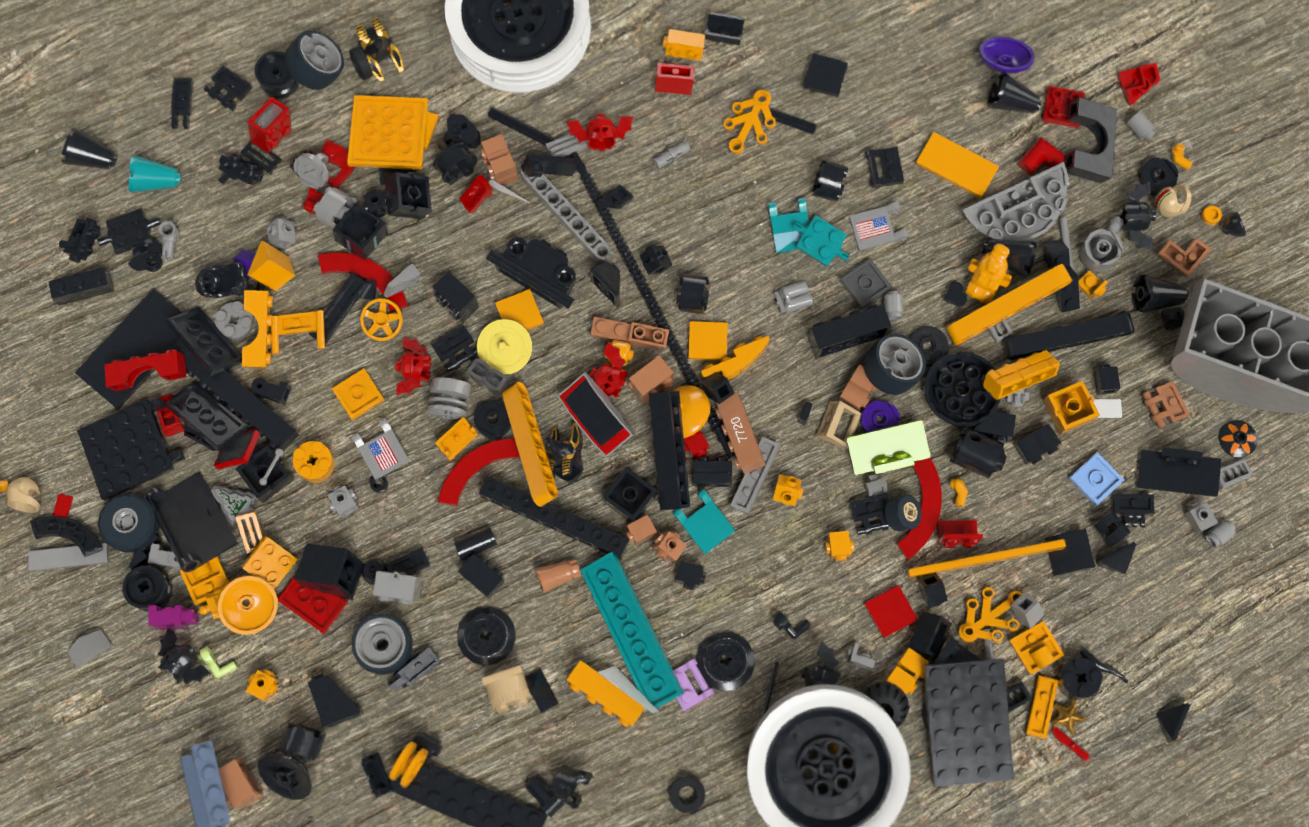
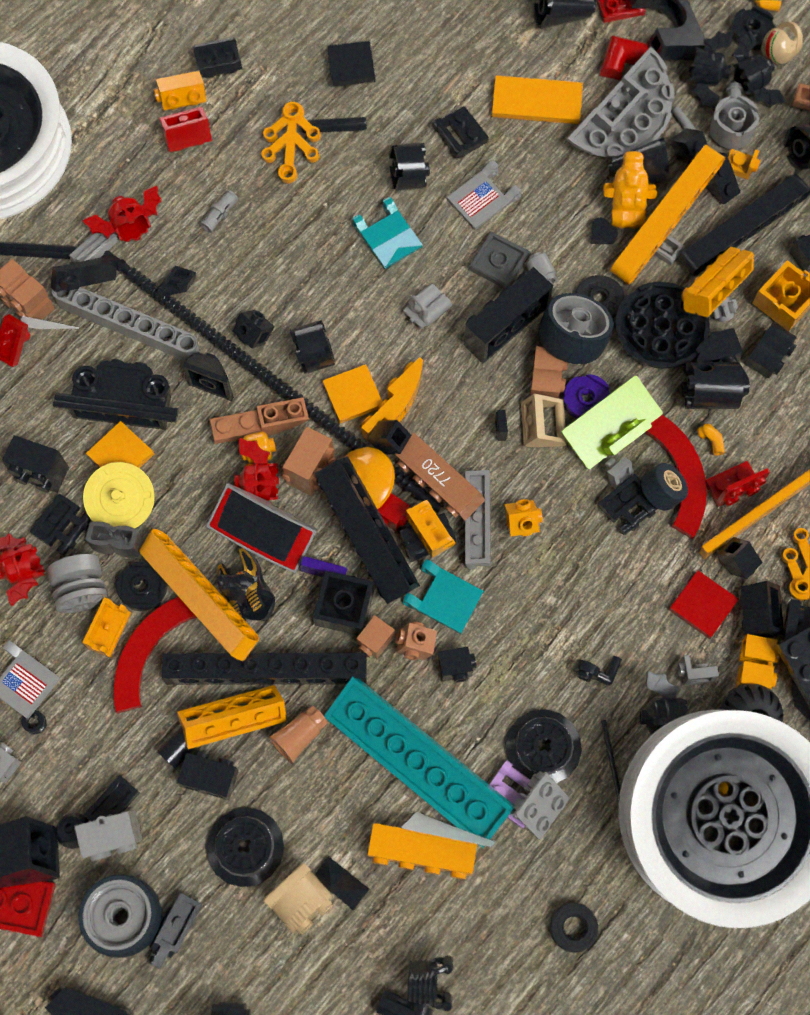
camera: 25 degrees left, 5 degrees down
(516, 544) = (234, 719): none -> light orange fence
(623, 461) = (318, 567): none -> dark purple tile
(703, 700) = (541, 804): none -> light grey hinge
(715, 469) = (429, 528): none -> light orange hinge
(821, 241) = (429, 234): teal plate -> none
(839, 545) = (610, 555): light orange brick -> none
(1104, 197) = (710, 68): none -> black helmet

